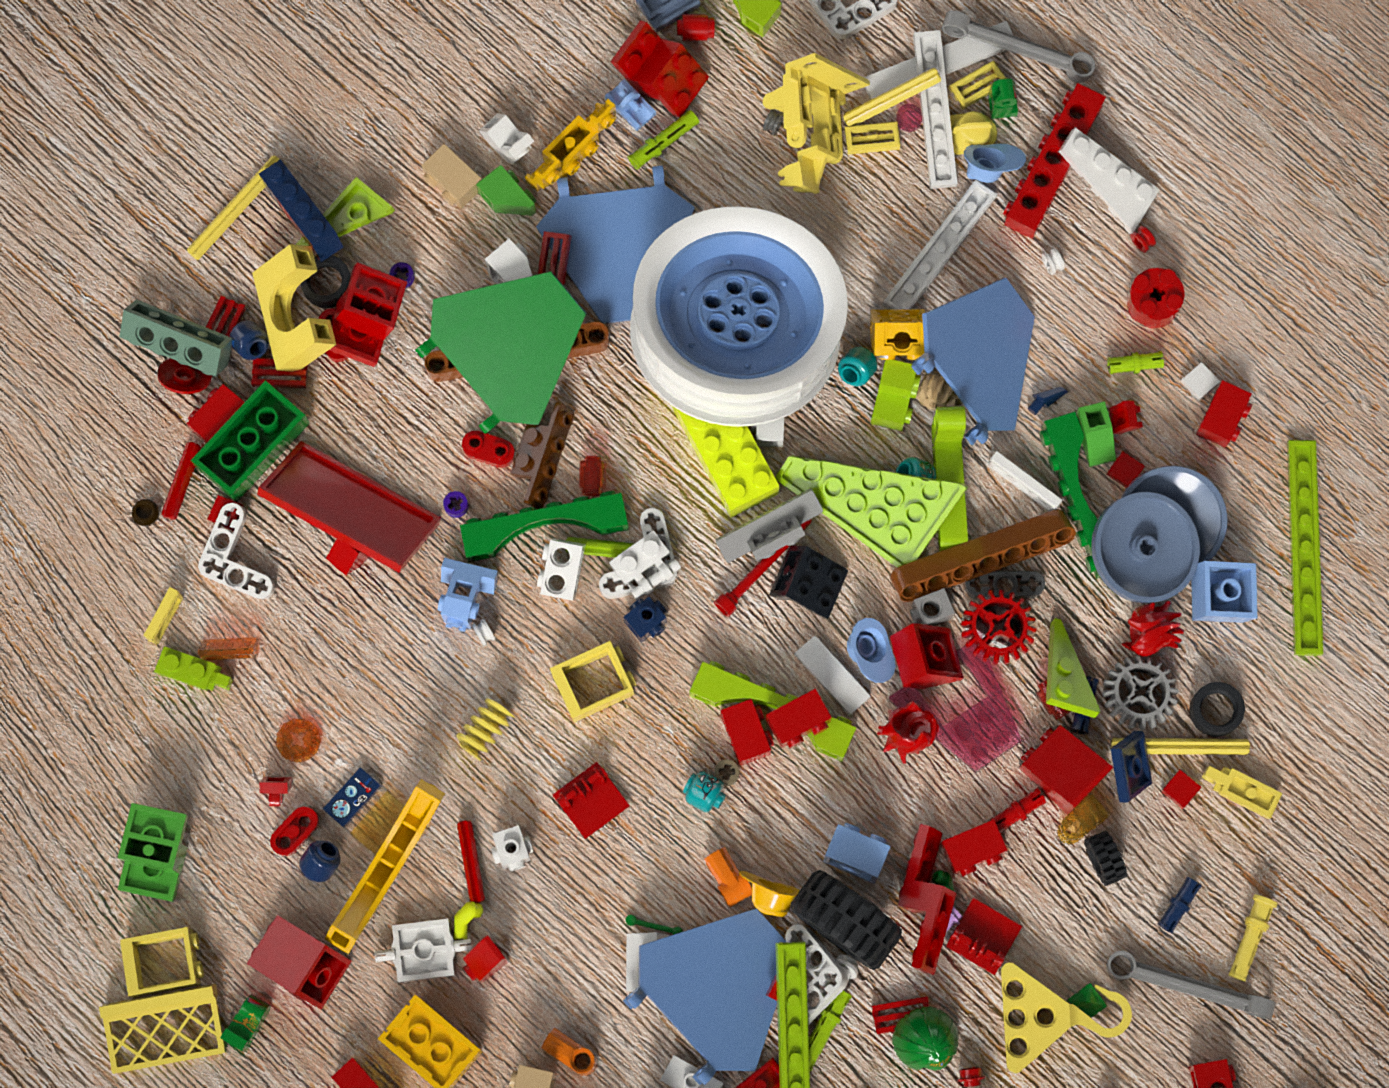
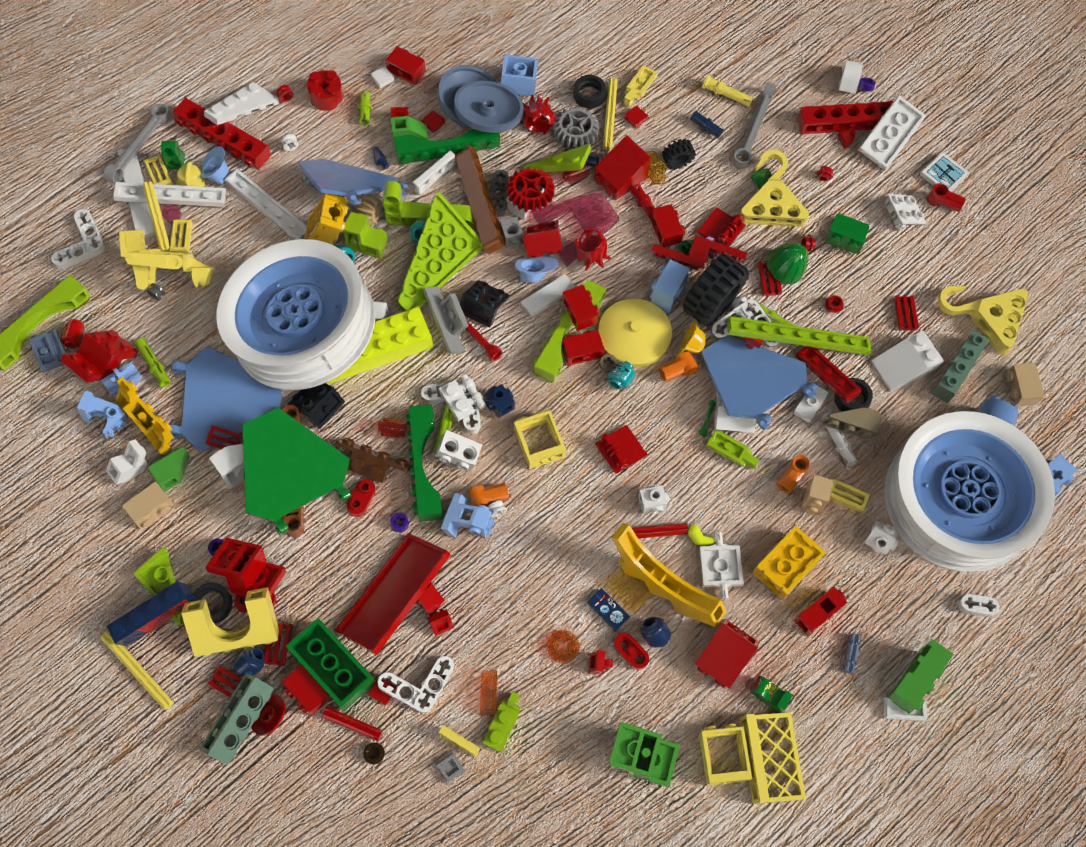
camera: 90 degrees left, 10 degrees down
(132, 610) = (450, 768): none -> light grey tile
(318, 574) = (440, 622): none -> red tile
(483, 728) = (566, 512): light yellow piece -> none
(484, 960) = (730, 521): red slope -> none
(500, 613) = (487, 495): none -> orange piece
(583, 76) = (92, 407): none -> light blue tile
(602, 961) = (731, 449): none -> lime hinge
(616, 369) = (318, 403): none -> black bracket
(783, 809) = (635, 332): none -> light yellow dish
(1131, 766) = (623, 131): dark blue tile -> none
(1305, 548) = (493, 38): lime tile -> none

